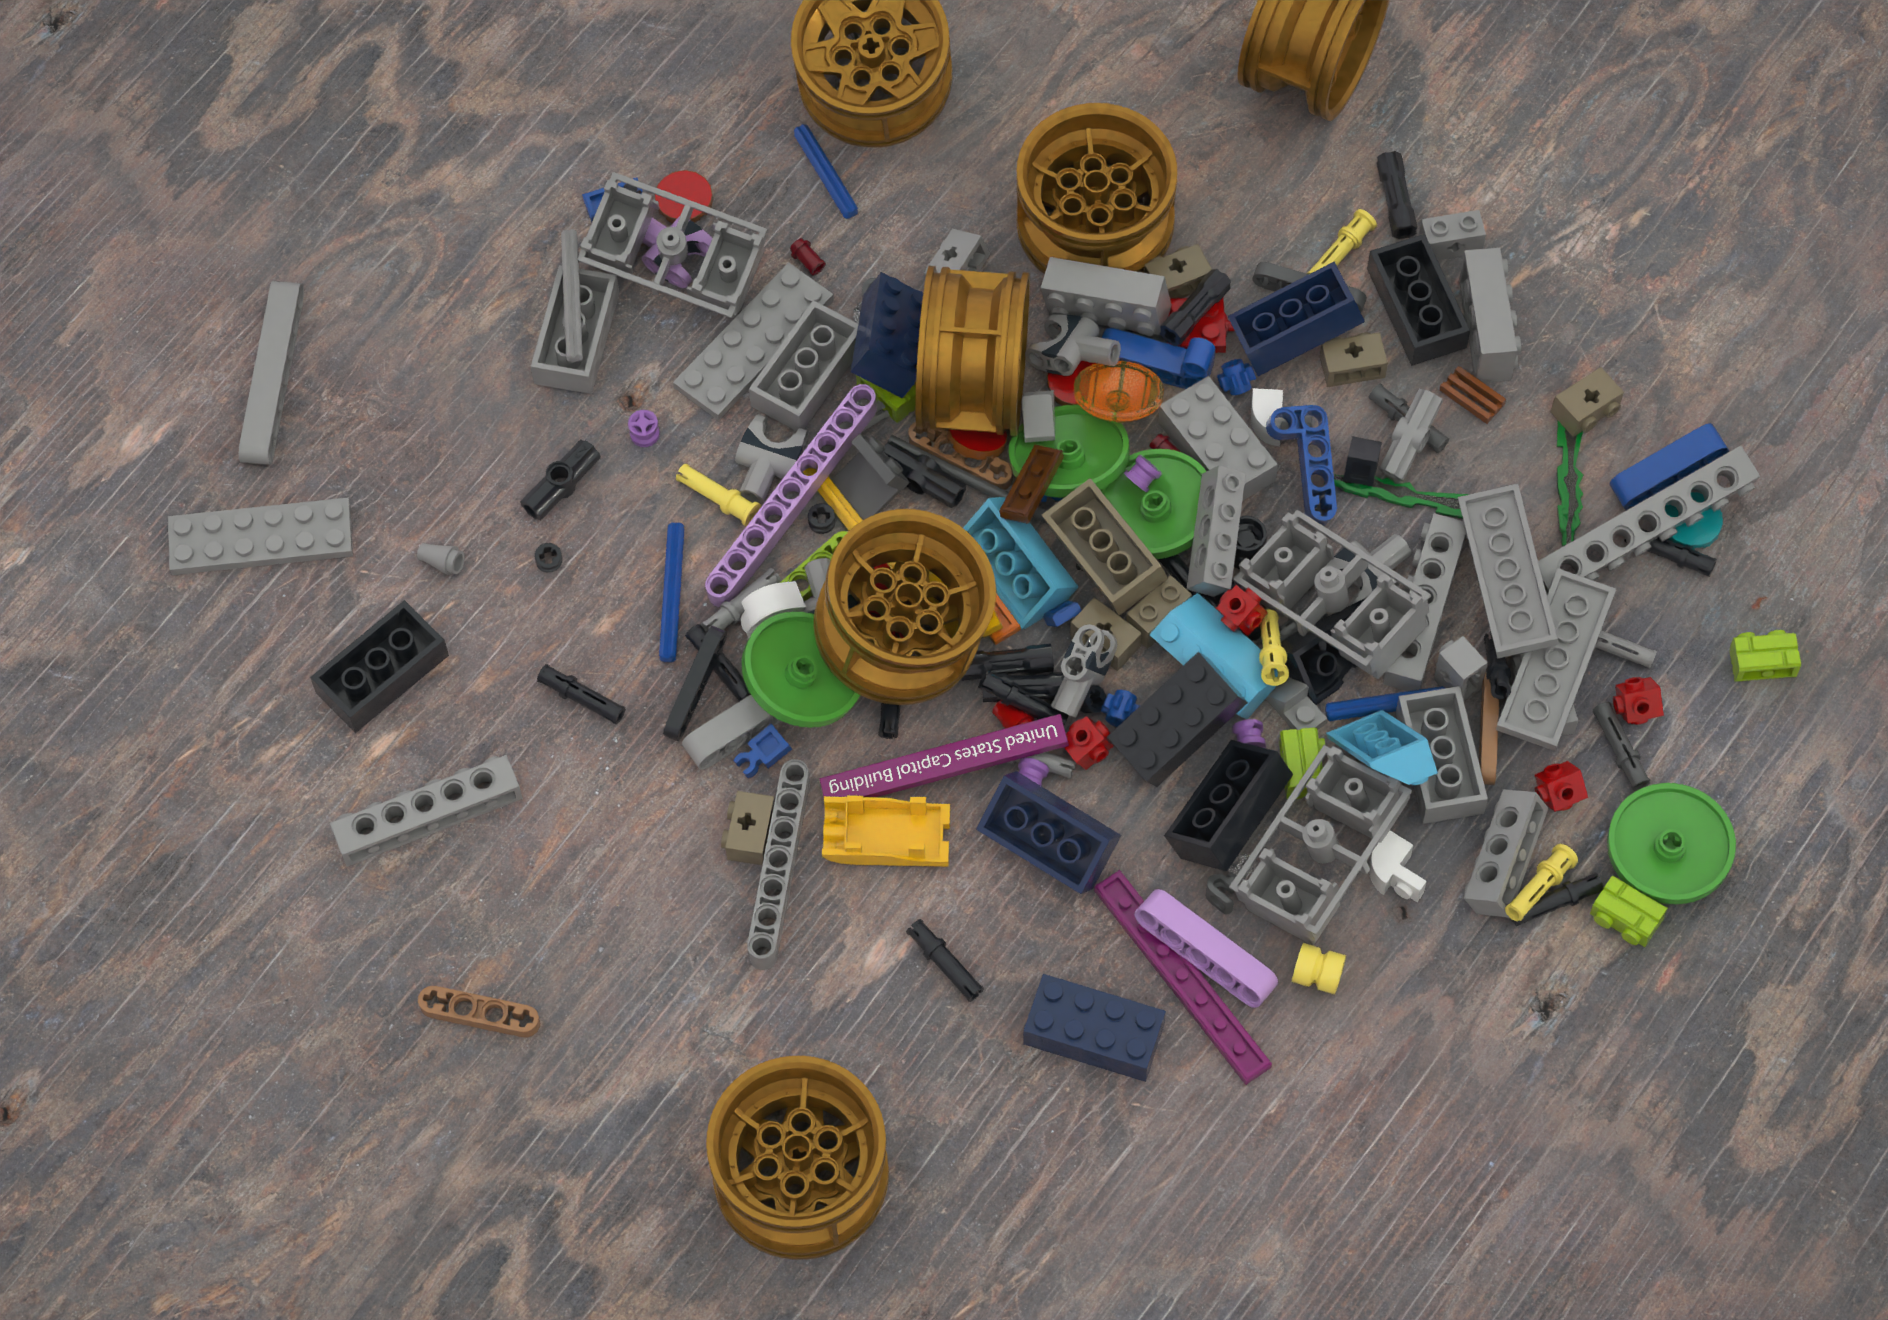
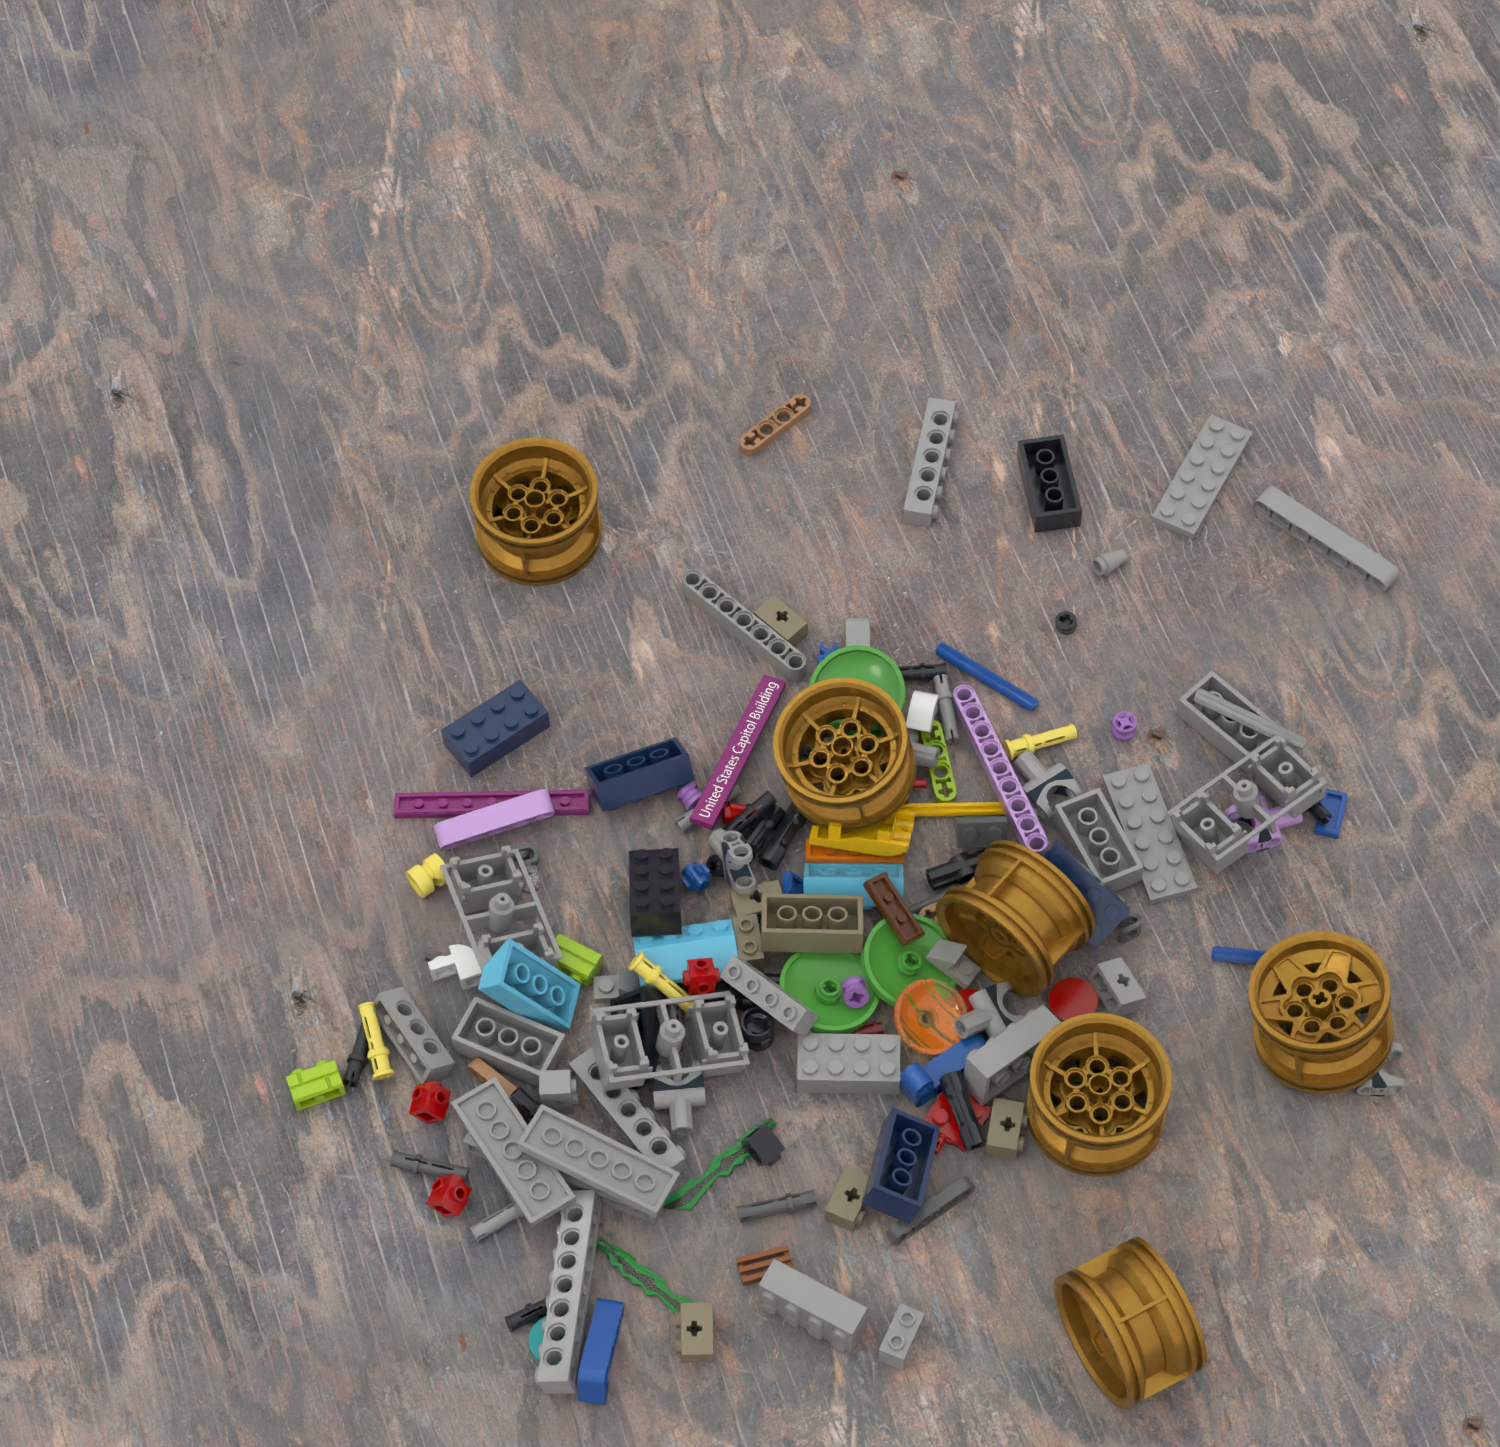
camera: 125 degrees right, 5 degrees down
(548, 491) = (1121, 666): black piece -> none
(570, 688) = (957, 582): black pin -> none
(686, 185) = (1302, 856): red tile -> none
(695, 683) = (903, 643): black beam -> none
(807, 256) = (1195, 902): dark red pin -> none
(821, 528) = (974, 787): black bush -> none
(885, 831) = (717, 694): yellow piece -> none
(935, 949) = (608, 678): black pin -> none
(1088, 742) = (687, 840): red brick -> none
(1228, 805) = (574, 888): black brick -> none
(1236, 377) = (887, 1104): blue gear -> none
(1249, 732) = (617, 941): medium lavender wheel -> none
(1262, 406) = (843, 1111): white brick -> none
(1308, 464) = (781, 1102): blue beam -> none
(1348, 238) = (953, 1267): light yellow pin -> none
(1368, 705) = (579, 1038): blue axle -> none
(1392, 176) = (950, 1319): black axle -> none
(1411, 434) = (757, 1188): light grey piece -> none
(1418, 299) = (865, 1270): black brick -> none
(1671, 843) = (335, 1140): bright green dish -> none
(1765, 656) = (416, 1306): lime brick -> none

